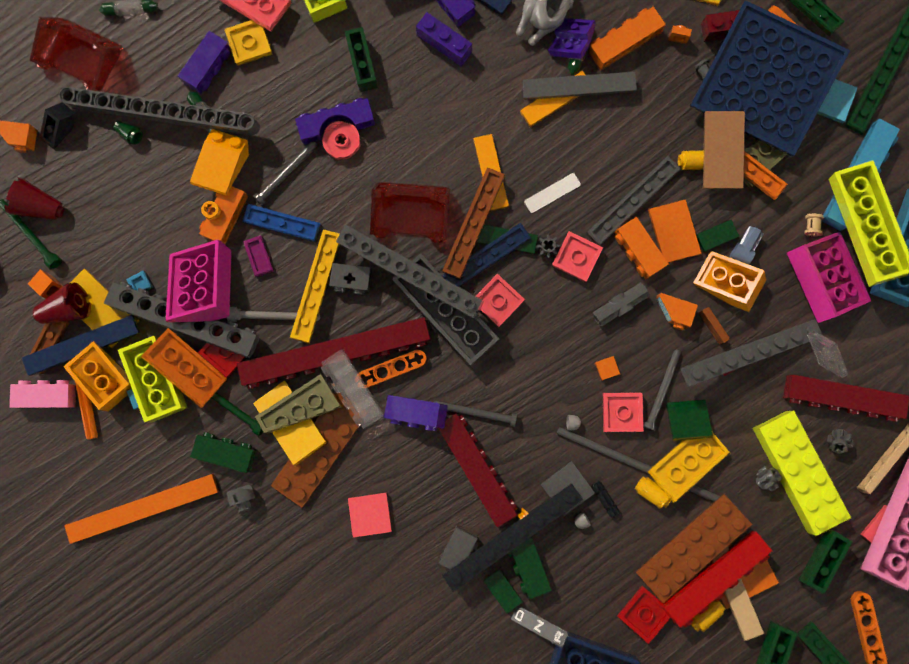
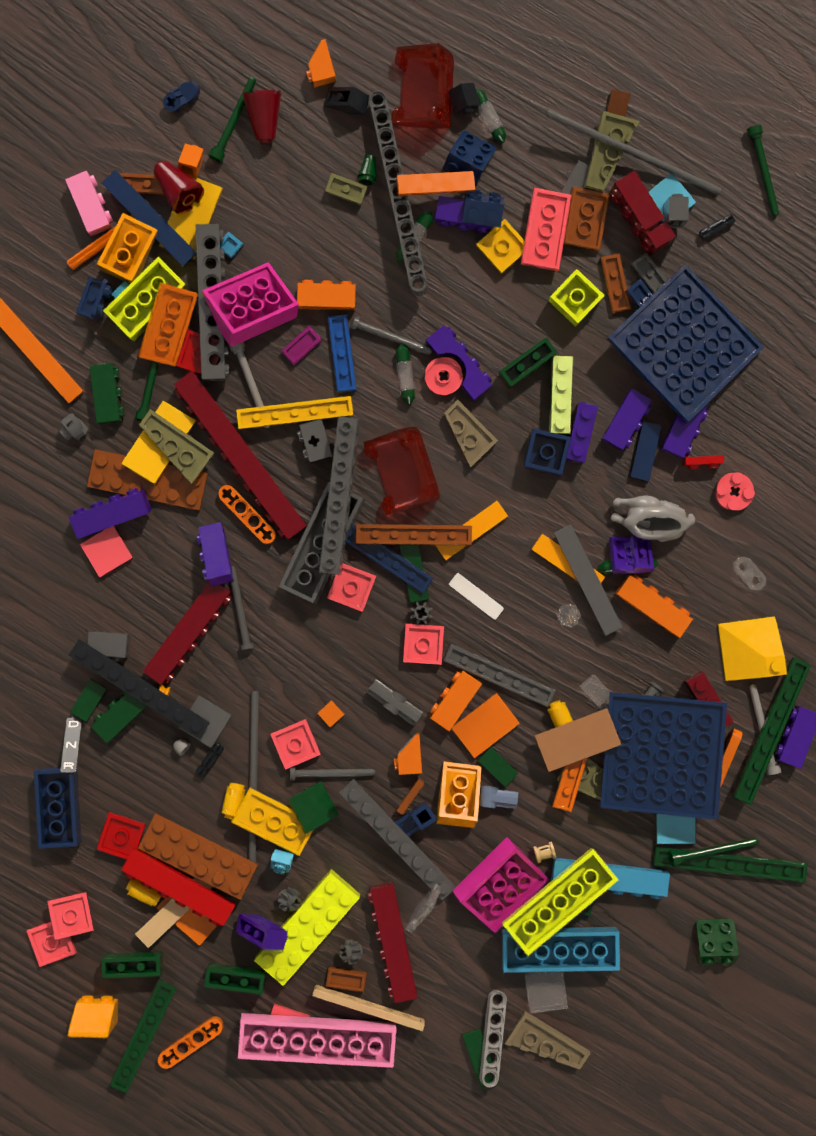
camera: 65 degrees right, 5 degrees up
(101, 20) = (464, 98): none -> black brick
(131, 426) = (94, 298): none -> dark blue bracket
(135, 158) = (346, 189): none -> olive plate
(157, 39) = (468, 155): none -> dark blue bracket
(164, 72) = (435, 183): none -> orange tile
(206, 205) = (317, 283): light orange bush -> none
(208, 42) = (483, 208): none -> dark blue bracket
(219, 162) = (372, 272): light orange slope -> none
(325, 173) = (405, 374): none -> piece
(335, 495) = (110, 513): none -> dark purple brick
(352, 388) = (212, 488): clear brick -> none
(389, 36) = (561, 395): none -> yellowish green arch
(402, 138) = (469, 433): none -> dark tan wing
(448, 75) = (546, 452): none -> dark blue brick
(573, 422) = (267, 702): light grey hinge -> none
(604, 115) = (568, 615): none -> clear gear
(679, 34) = (679, 655): orange plate -> none
(684, 120) = (596, 692): none -> clear tile
(729, 470) = (281, 861): none -> medium azure plate
(737, 326) = (416, 819): none -> dark blue brick
(792, 516) = (261, 931): none -> dark purple brick
(863, 456) = (346, 979): none -> dark orange tile
(867, 107) = (677, 858): none -> dark green piece

